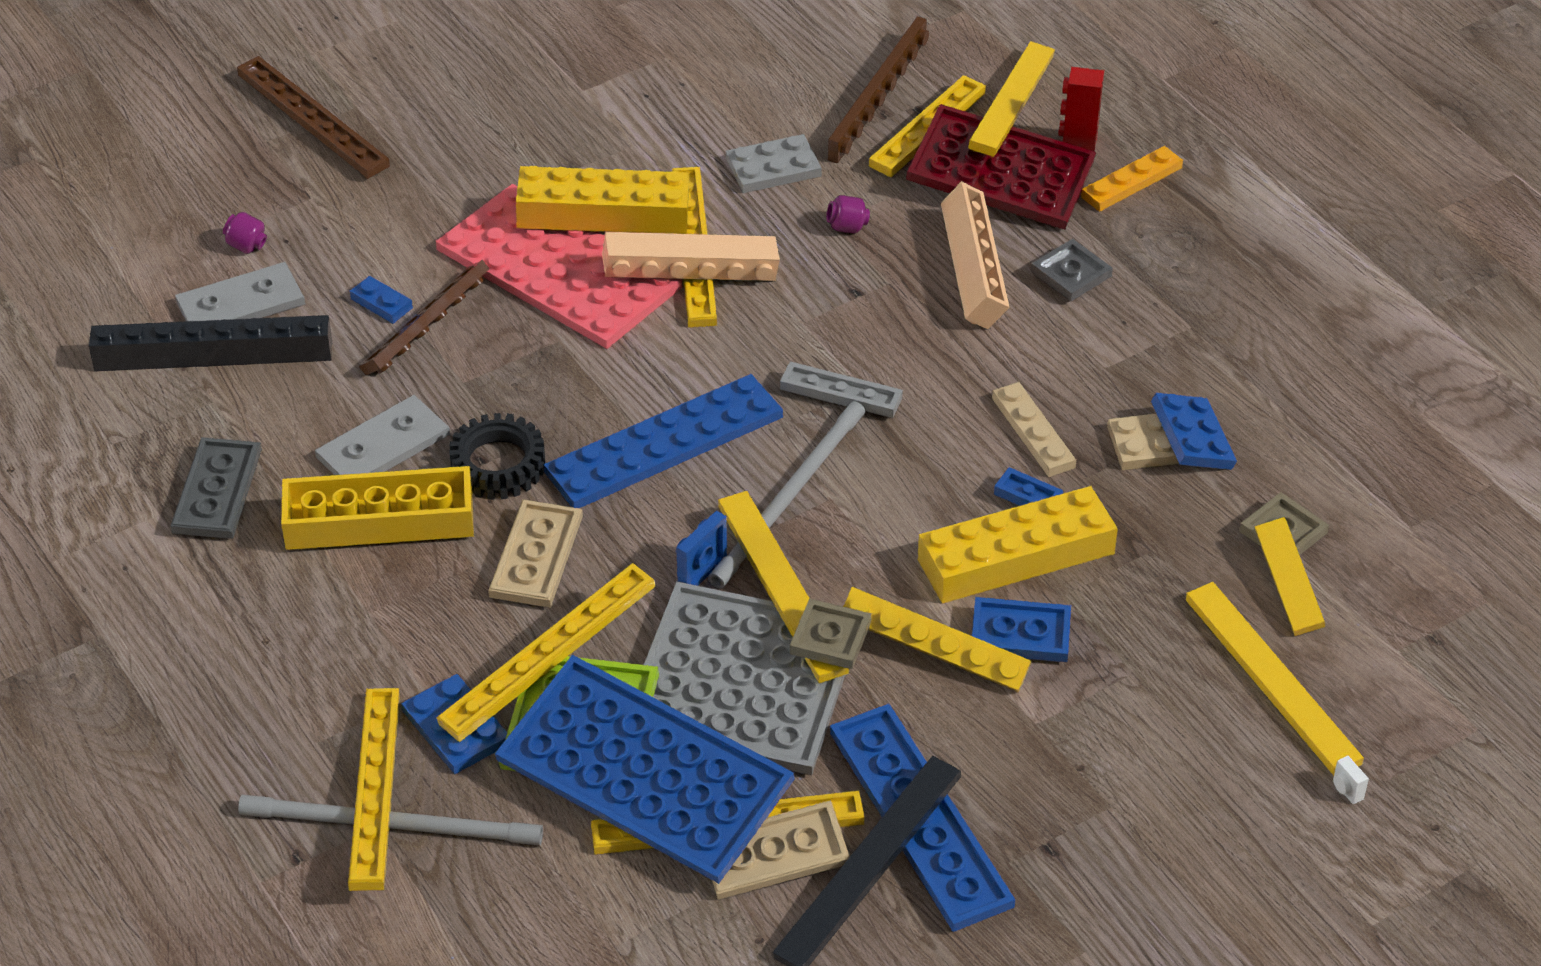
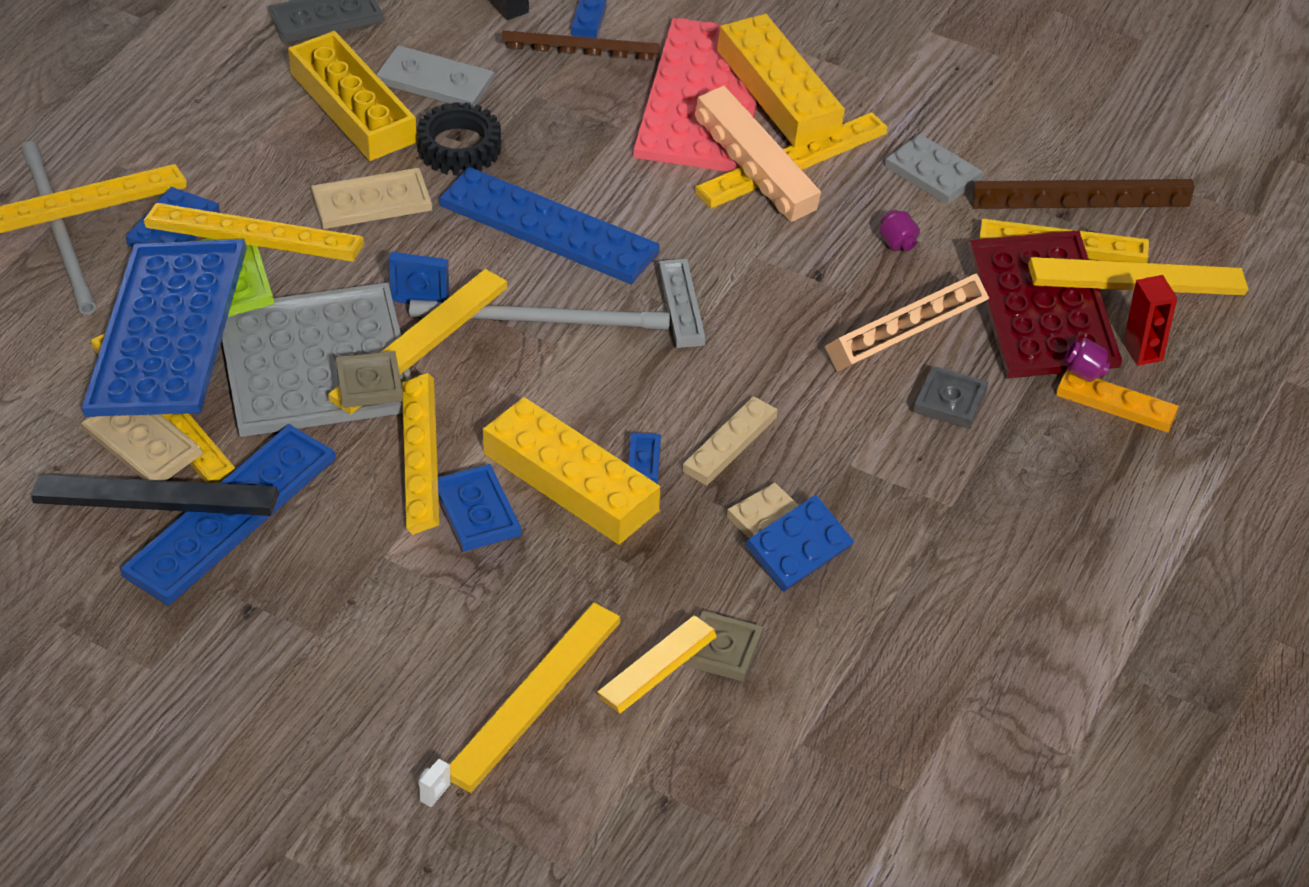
camera: 60 degrees right, 0 degrees up
(1097, 167) = (1087, 360): none -> magenta head

